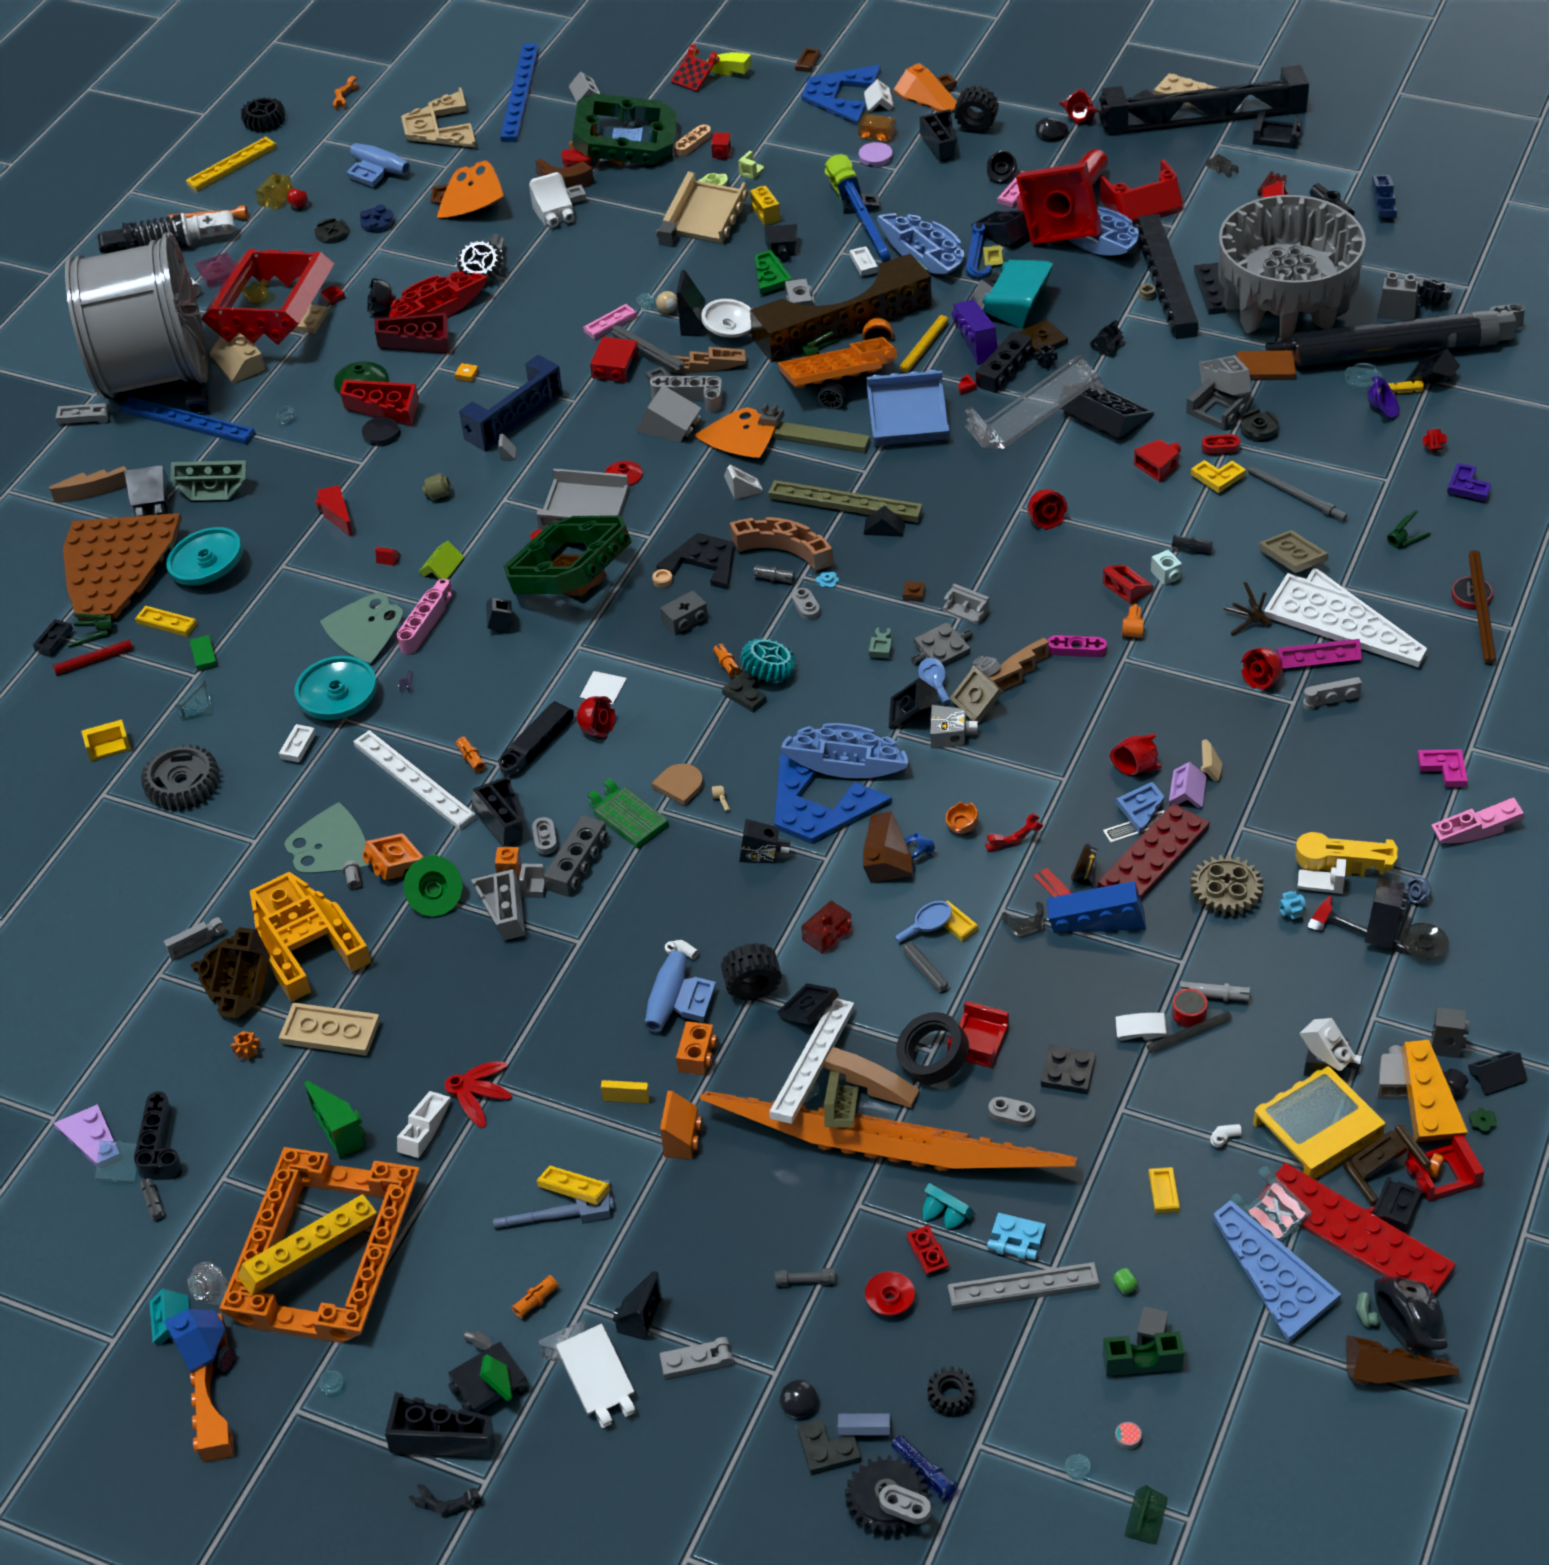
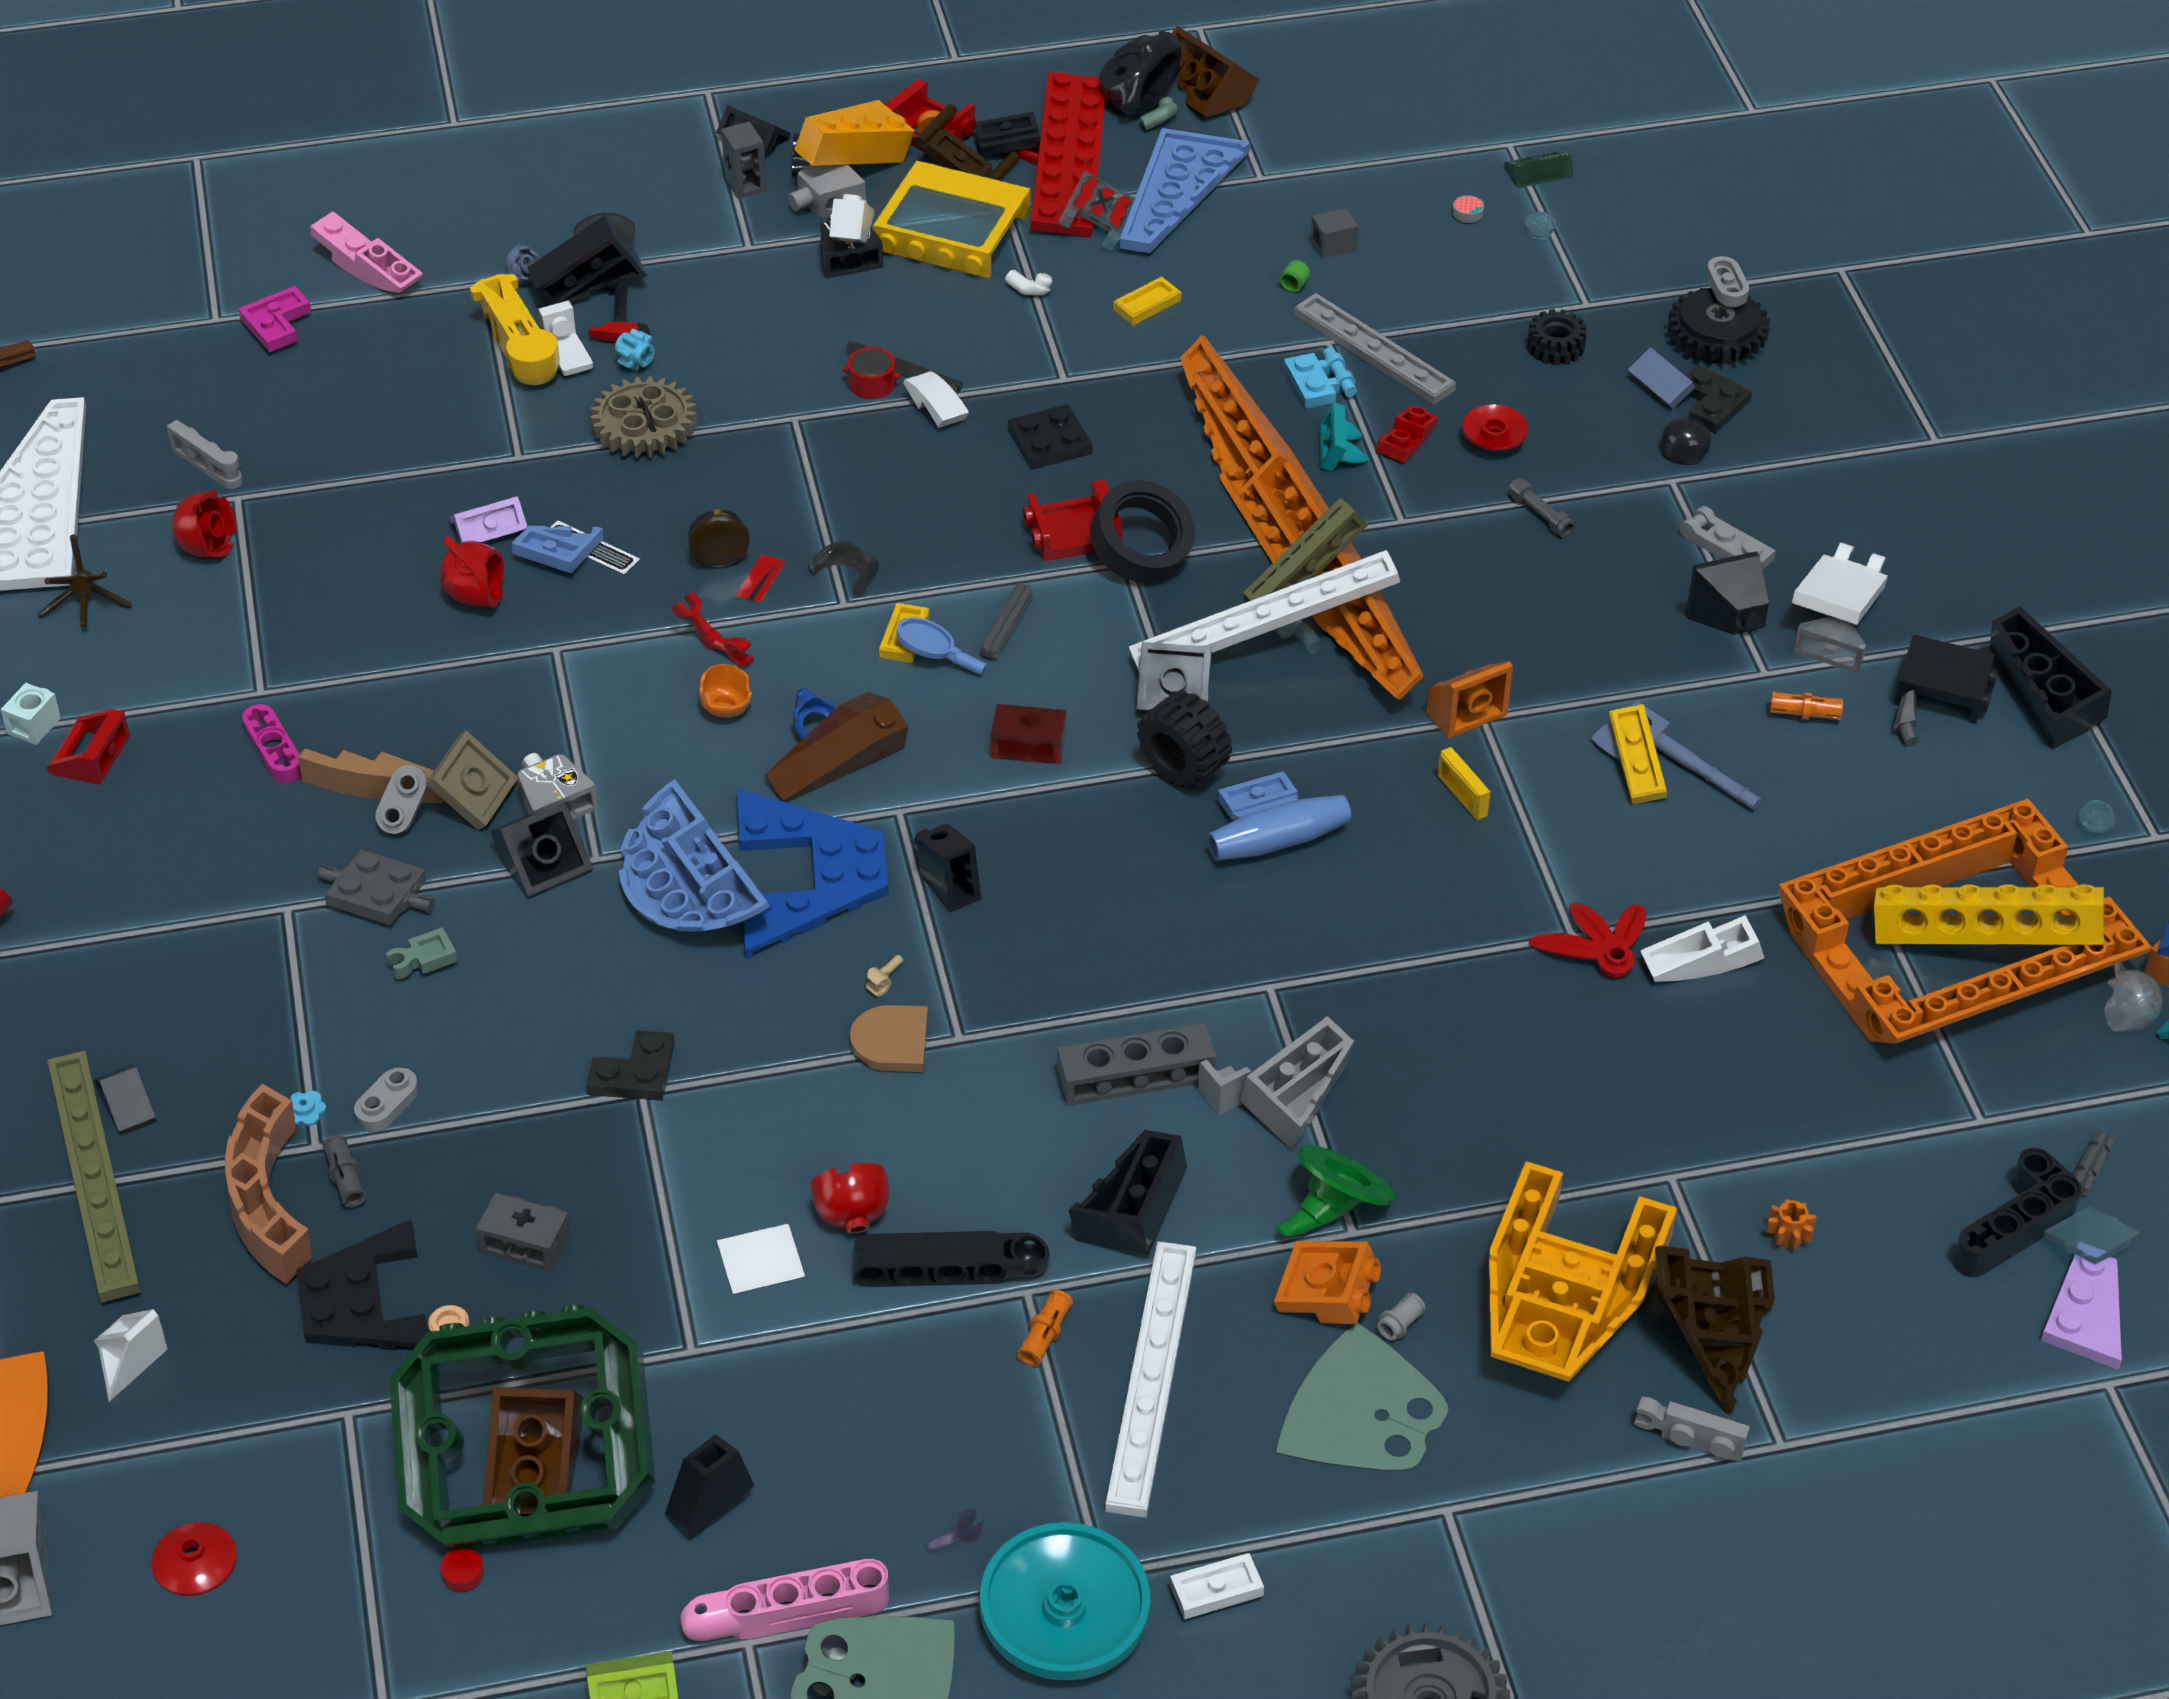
camera: 130 degrees left, 0 degrees up
(329, 1029) = (1672, 1151): tan plate -> none
(337, 1120) = (1803, 1016): green slope -> none
(470, 1499) = (2077, 618): black piece -> none
(497, 1376) = (1945, 643): green piece -> none
(508, 859) = (1220, 1128): orange brick -> none
(544, 836) = (1122, 1128): light grey plate -> none
(583, 495) = (327, 1559): light grey panel -> none
(627, 814) = (1003, 1061): green tile -> none
(682, 946) = (1187, 867): white arm -> none
(696, 1048) = (1336, 755): orange brick -> none
(726, 660) = (594, 1119): orange pin -> none
(768, 660) = (569, 1050): teal gear -> none
(878, 1080) = (1227, 570): medium nougat slope -> none
(913, 591) = (266, 982): reddish brown plate -> none
(933, 1473) = (1663, 293): clear blue pin -> none
(934, 674) = (453, 863): medium blue piece -> none
(966, 604) = (264, 898): light grey hinge -> none
(1010, 1111) = (1154, 454): light grey plate -> none
(1098, 910) = (787, 494): blue wedge -> none
(1133, 623) = (191, 696): orange axle -> none
(1156, 850) = (628, 504): dark red plate -> none
(1161, 1354) = (1390, 233): dark green arch -> none
(1211, 762) = (430, 507): tan piece -> none
(1219, 991) = (820, 357): light grey pin -> none
(1320, 653) = (124, 491): dark pink plate -> none

